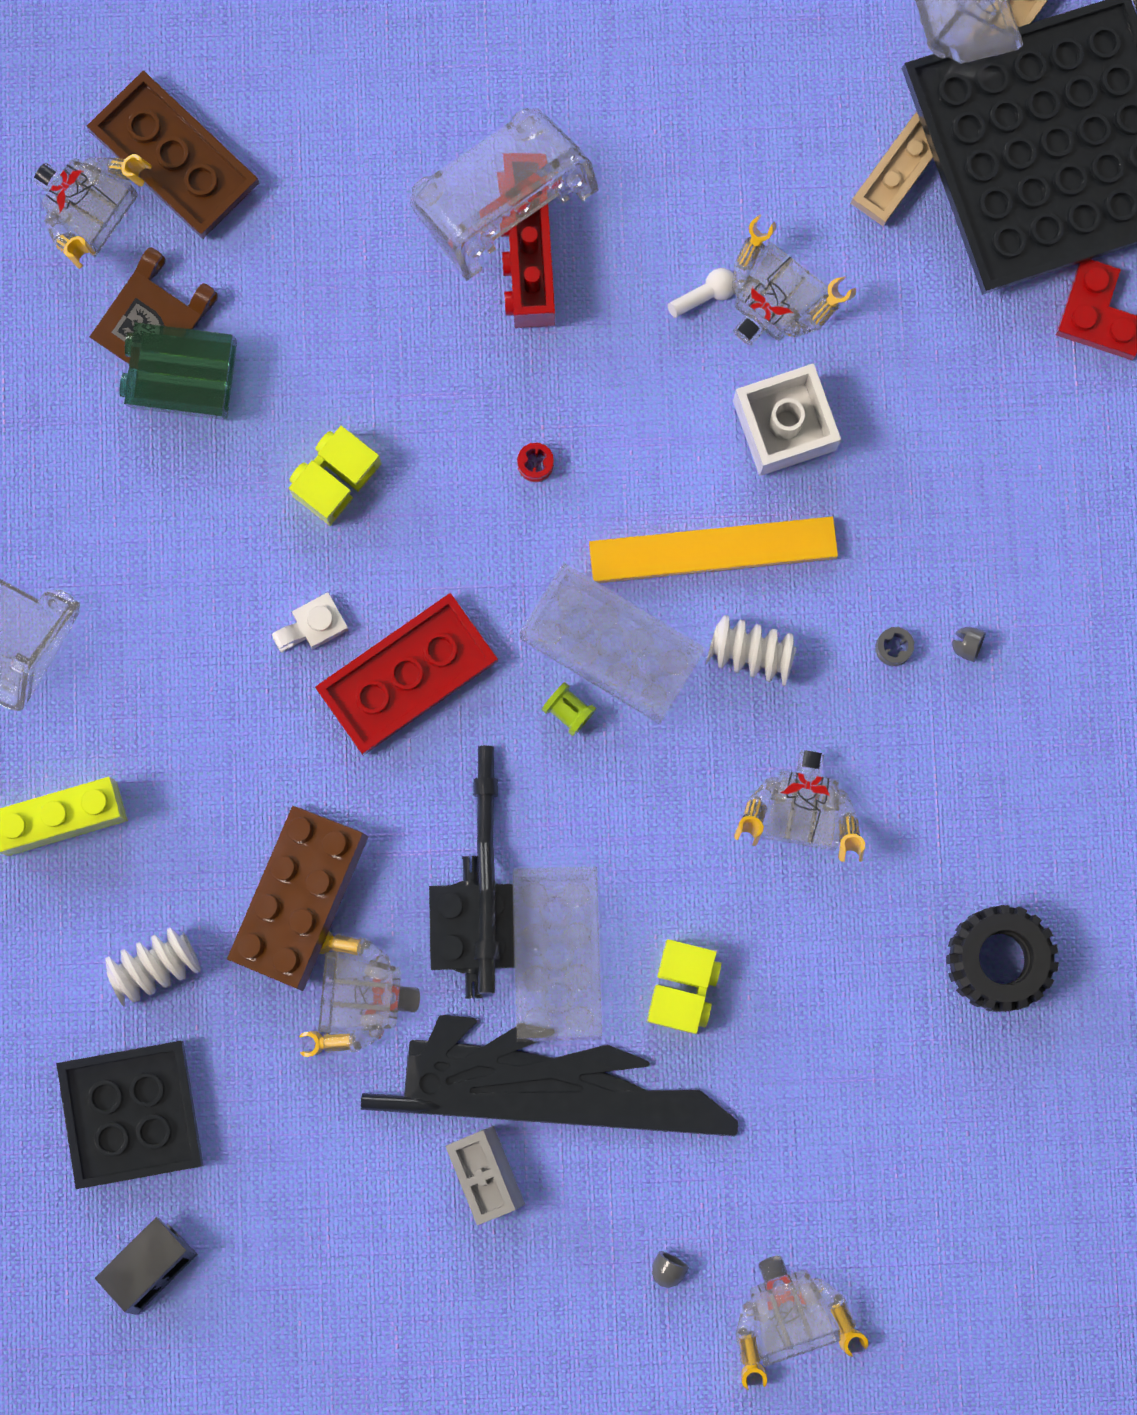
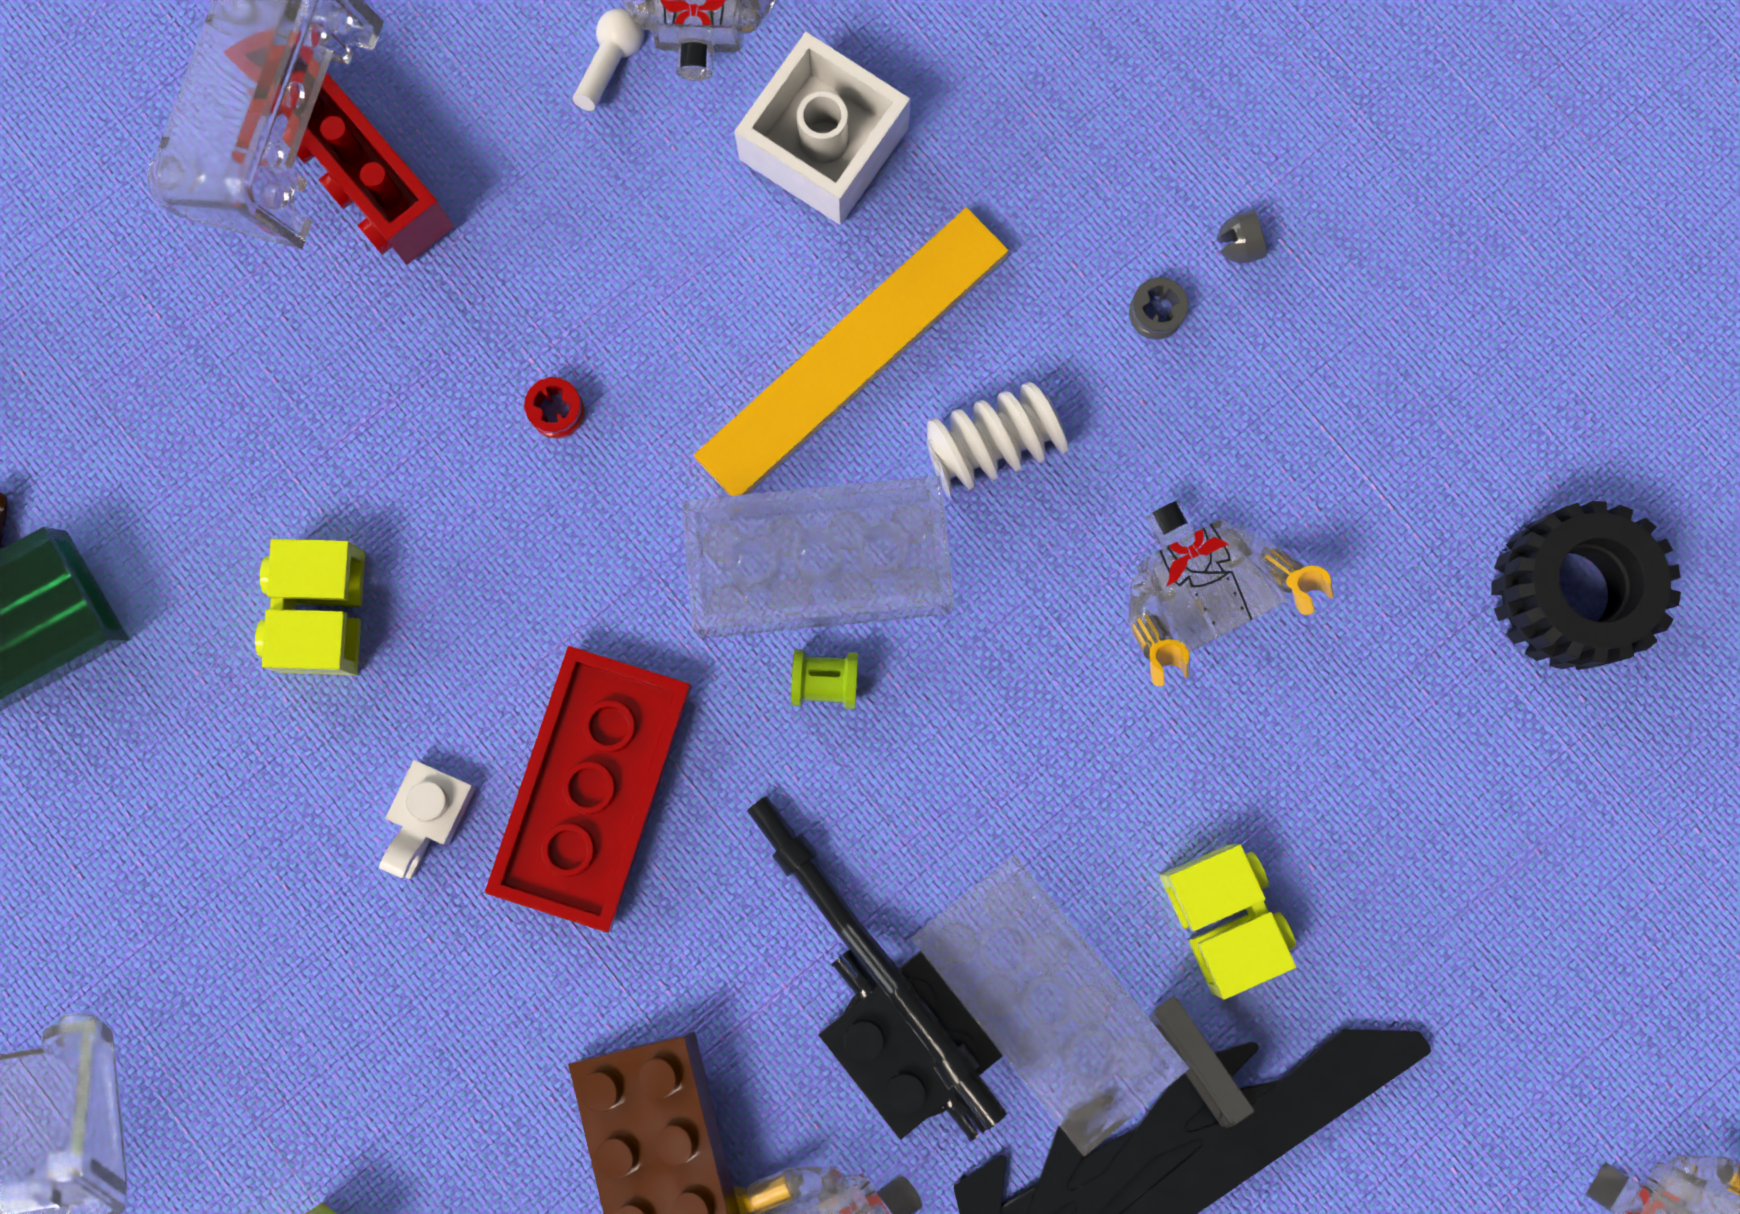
camera: 35 degrees left, 0 degrees up
(611, 1045) = (1205, 1070): none -> dark grey tile

